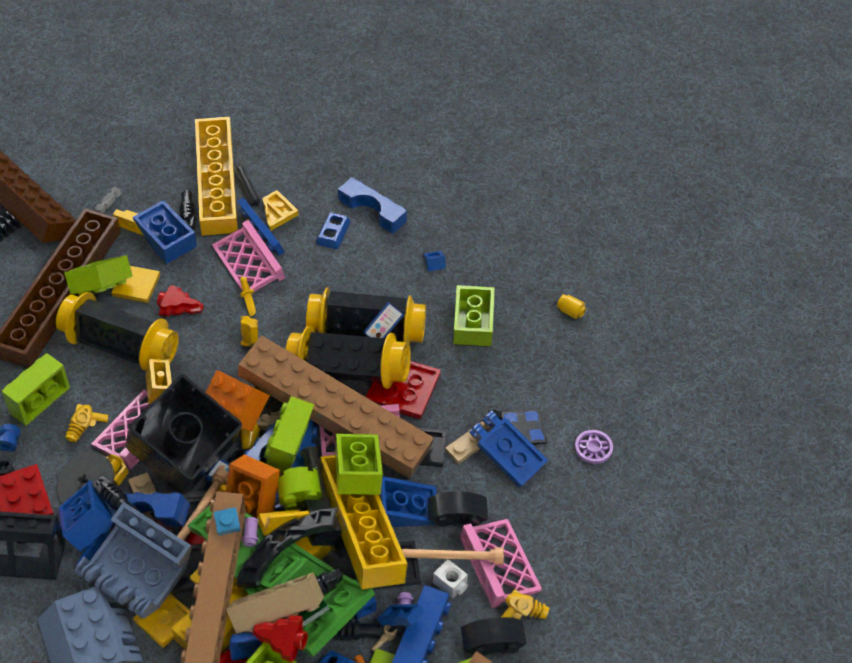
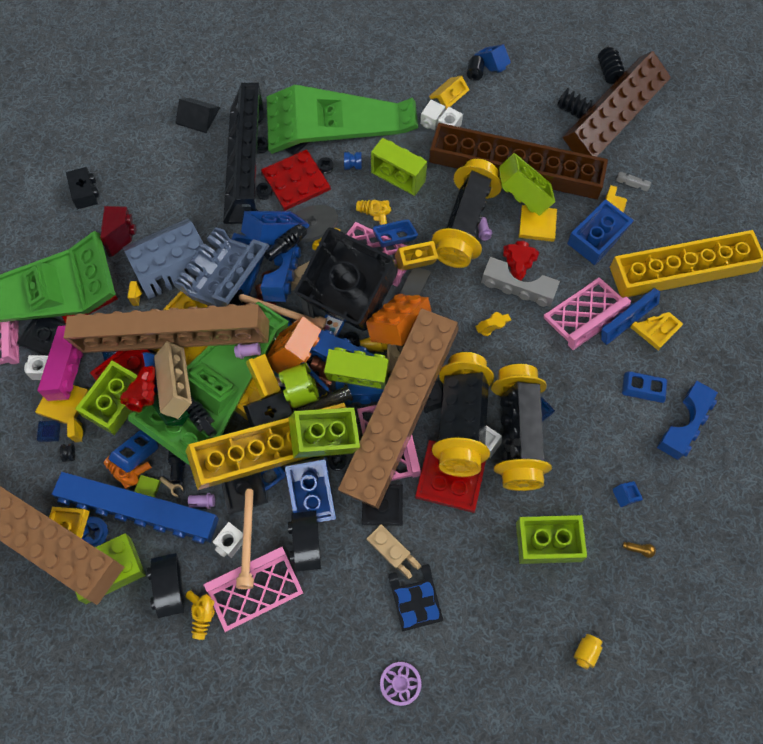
camera: 85 degrees right, 15 degrees up
(112, 411) = (391, 229): none -> blue piece
(187, 209) = (635, 246): black hinge -> none
(193, 321) = (498, 276): none -> light grey arch
(227, 521) = (227, 318): dark azure plate -> none
(247, 185) = (685, 297): black axle -> none
(247, 294) = (538, 318): yellow piece -> none
(280, 539) = (239, 375): black tile -> none
(384, 322) = (504, 440): slope -> none
(401, 614) = (179, 494): blue plate -> none
(487, 254) = (646, 550): none -> pearl gold piece
(508, 449) = (381, 589): blue tile -> none

